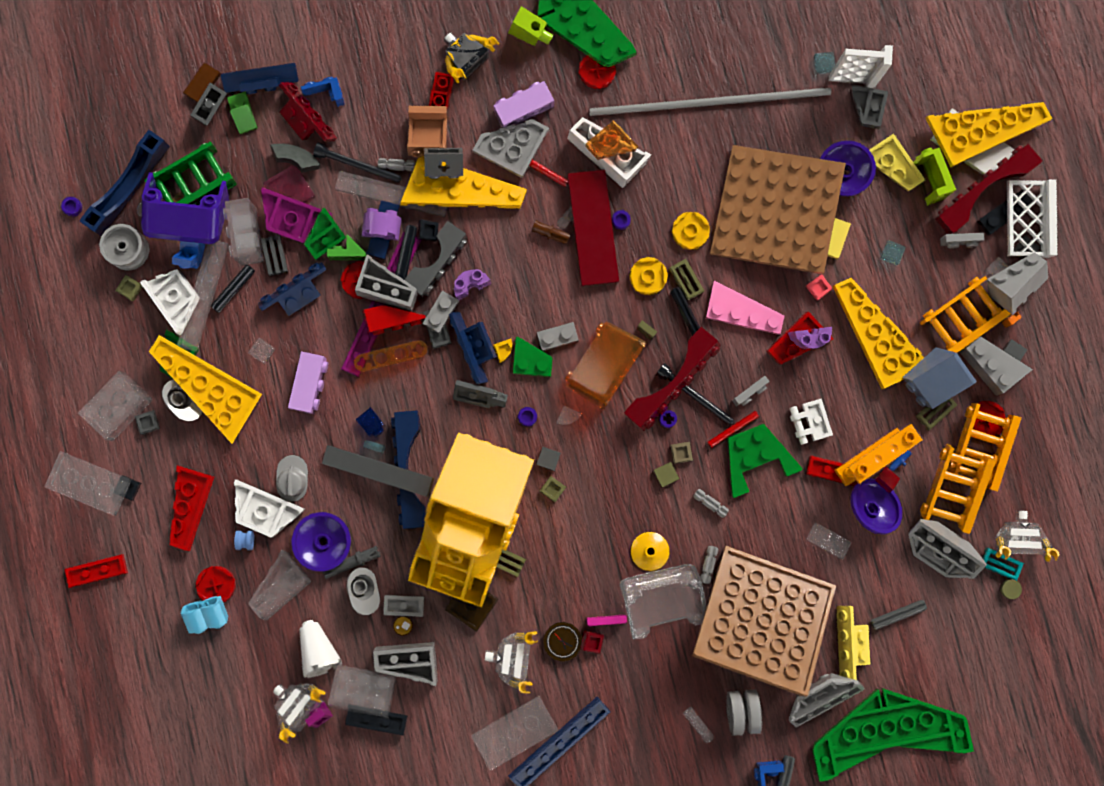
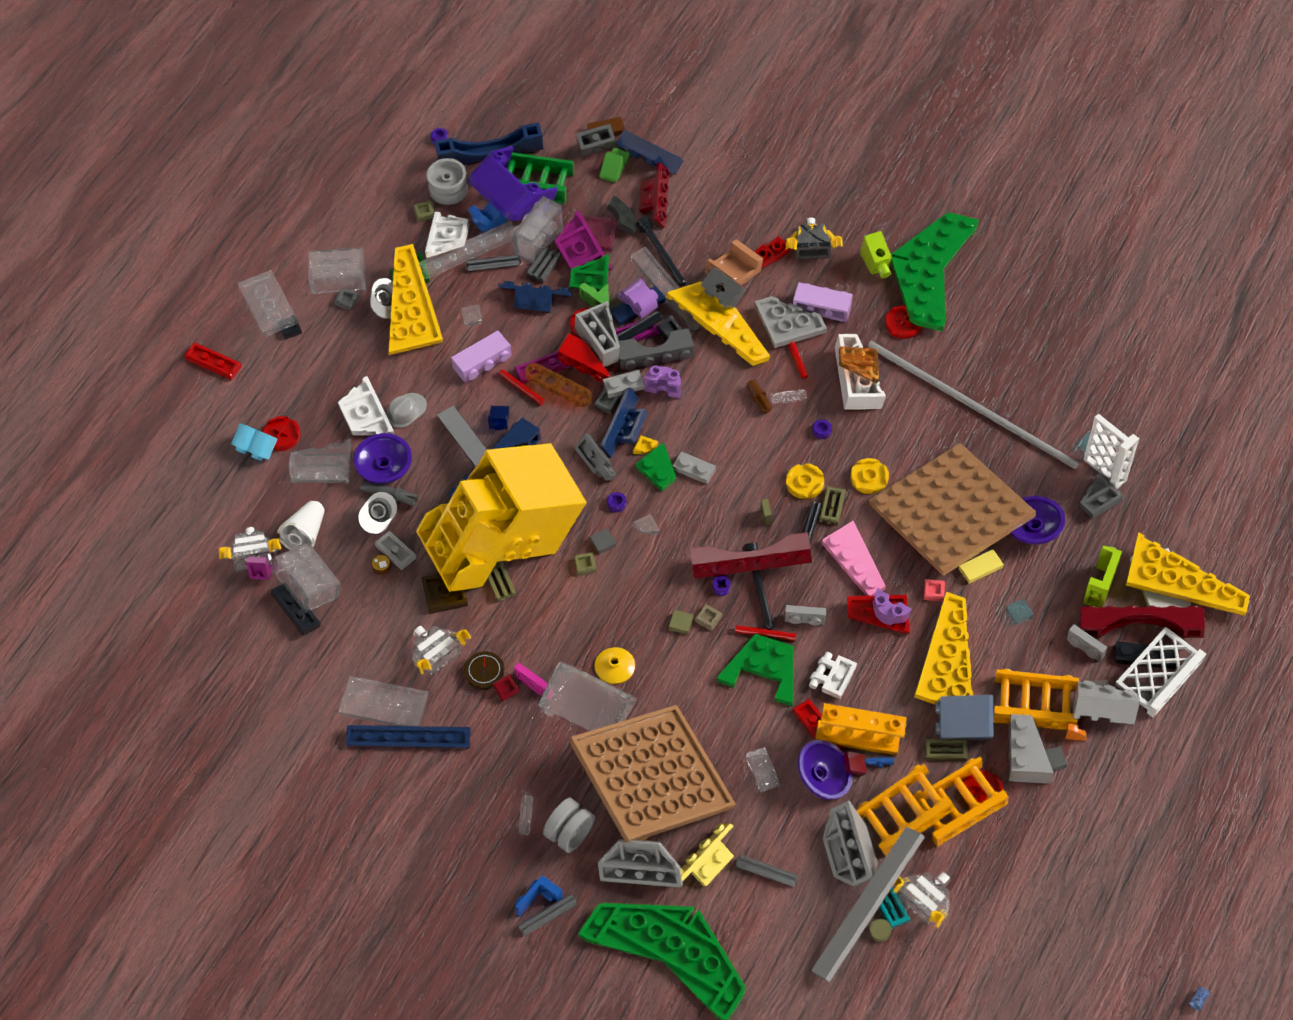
camera: 50 degrees right, 25 degrees down
(190, 500) = (325, 365): red wing -> none
(244, 540) = (331, 418): medium blue wheel -> none
(327, 83) = (692, 189): blue bracket -> none
(362, 381) = (521, 387): none -> red bar
(374, 446) = (485, 432): clear light blue tile -> none
(396, 164) = (688, 271): light grey axle -> none
(408, 661) = (361, 585): light grey wedge -> none
(593, 228) = (793, 416): dark red tile -> none
(605, 364) = (709, 507): clear orange windscreen -> none
(709, 564) = (652, 707): light grey axle -> none
(711, 503) = (695, 668): light grey axle -> none
(896, 163) = (1082, 550): light yellow wing -> none
(998, 584) = (867, 904): none -> light grey tile

